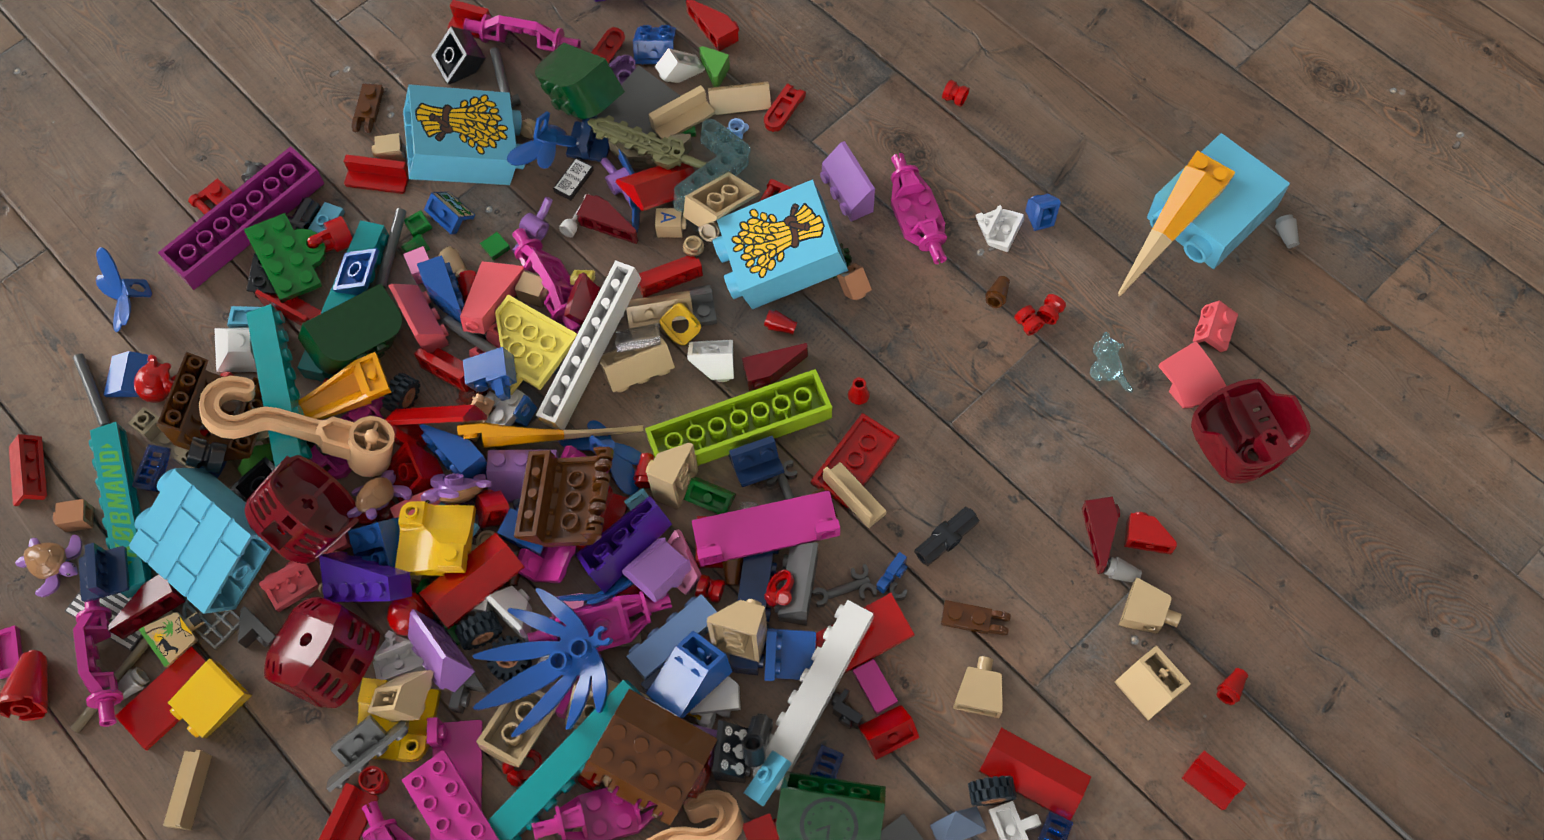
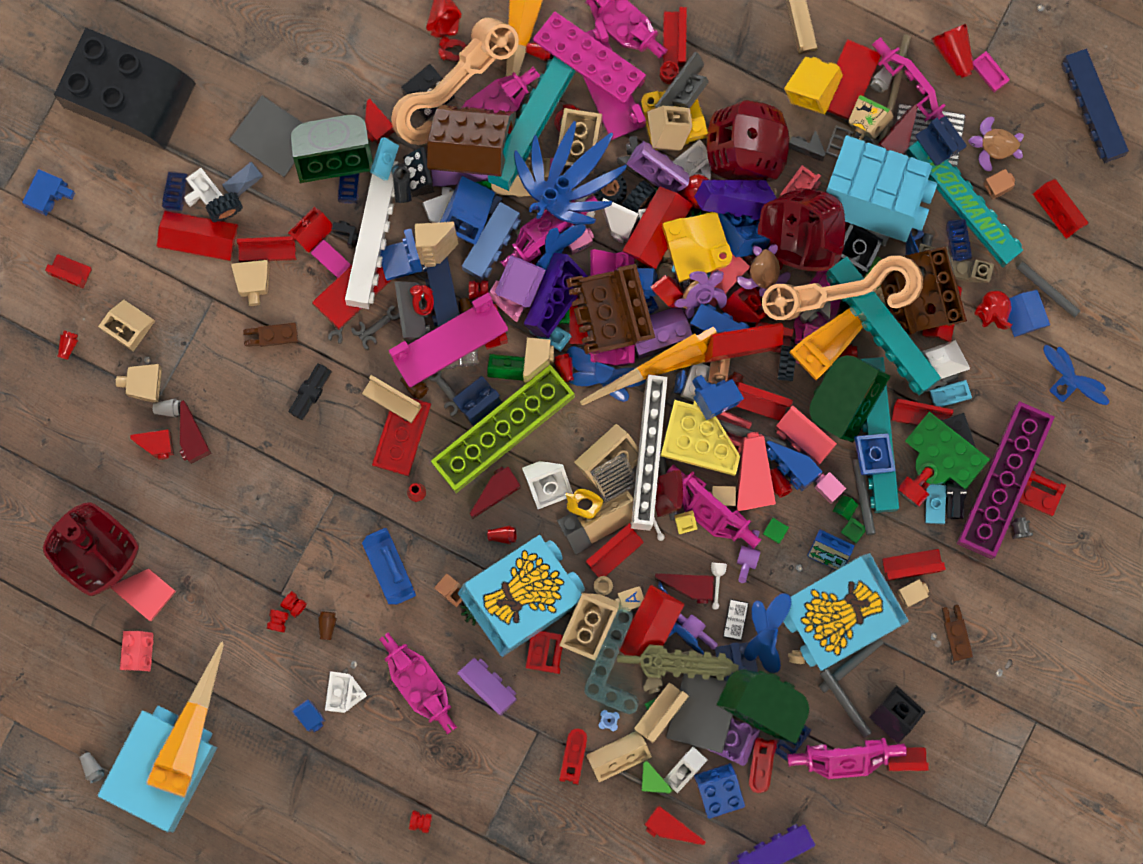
camera: 160 degrees right, 15 degrees up
(206, 455) = (906, 246): black wheel -> none
(451, 255) = (804, 501): tan cone -> none
(895, 569) = (341, 351): blue plate -> none
(913, 328) = (388, 567): none -> blue piece
(952, 723) = (267, 249): none -> red panel
(1108, 365) = (218, 583): clear light blue animal -> none

